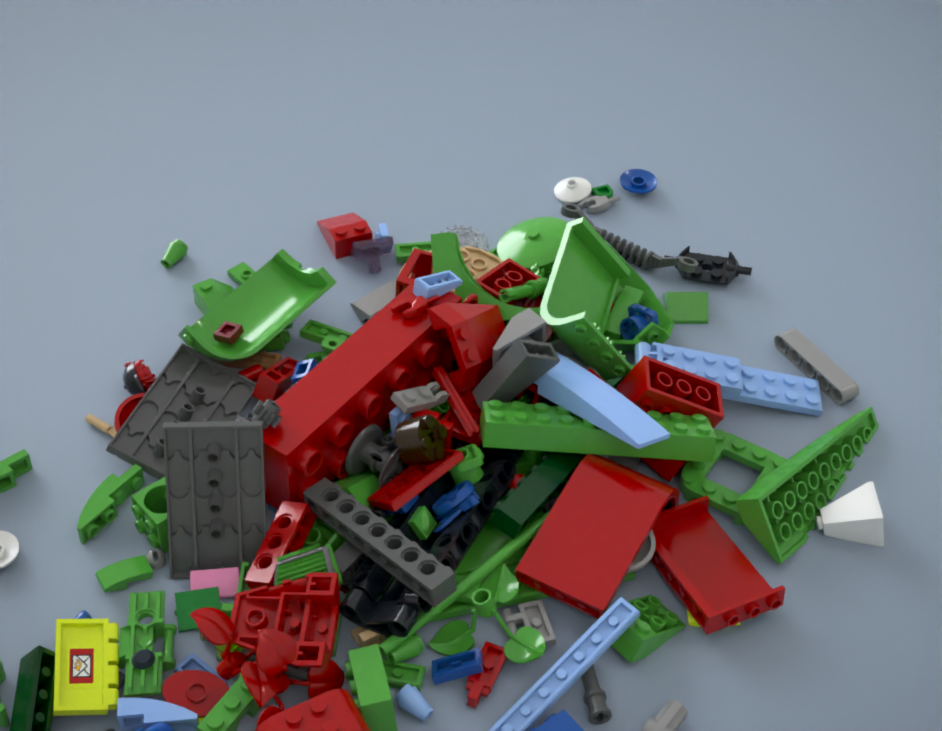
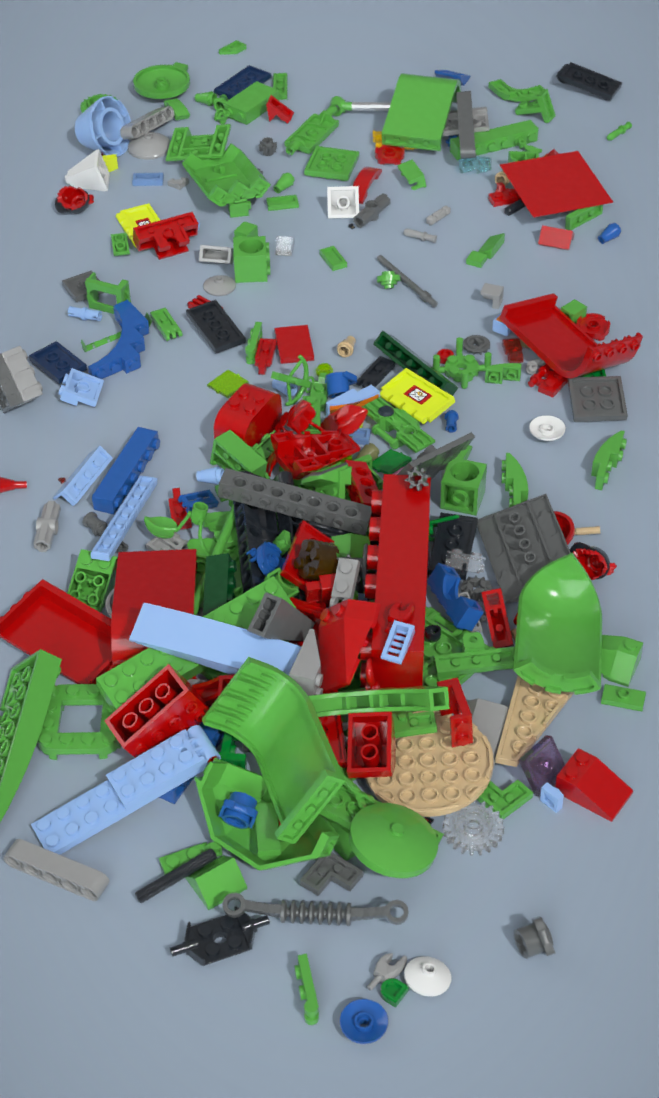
camera: 150 degrees right, 0 degrees up
(228, 332) = (565, 615): plate -> none
(347, 291) = (527, 719): none -> tan wing
(485, 167) = (534, 939): none -> dark grey piece
(530, 289) = (342, 736): bright green pin -> none
(664, 211) = (307, 990): none -> bright green plate
(699, 329) = (178, 858): none -> bright green hinge
(717, 316) = (175, 875): none -> black axle

